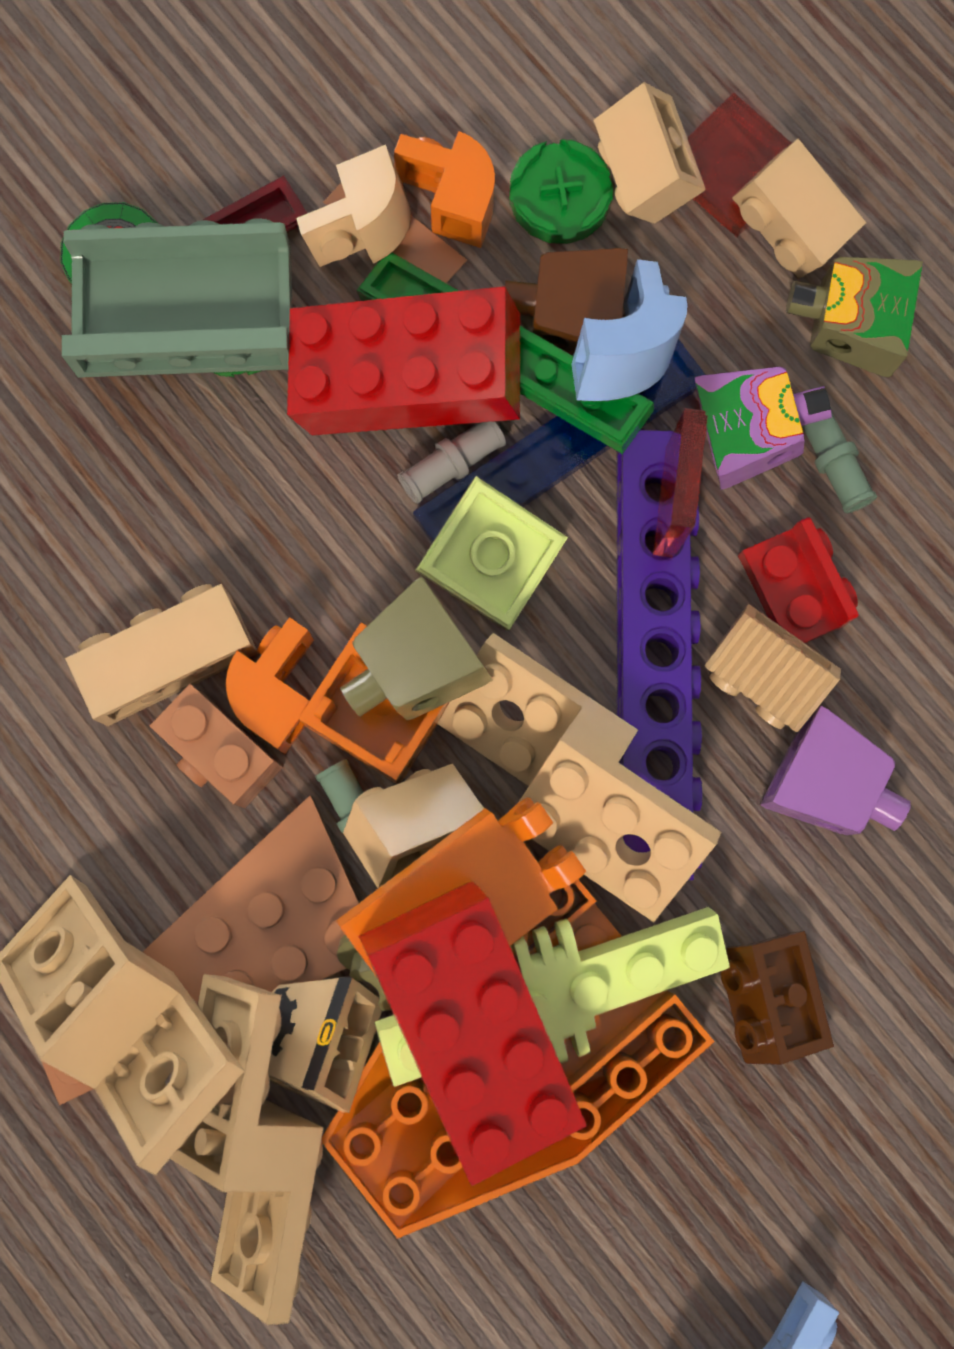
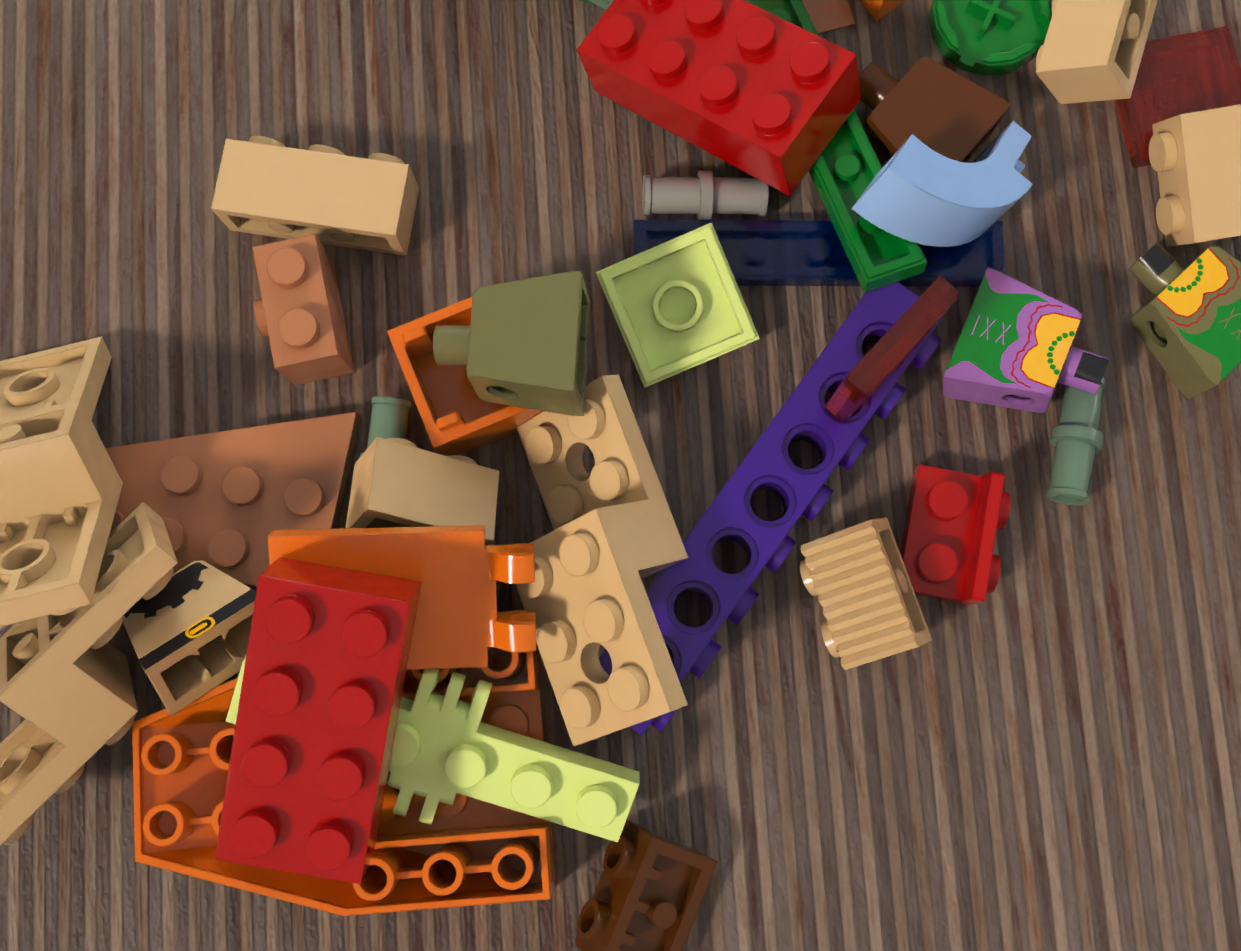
camera: 45 degrees right, 0 degrees up
(259, 690) = (376, 288): orange brick -> none
(835, 779) = (852, 741): medium lavender torso -> none

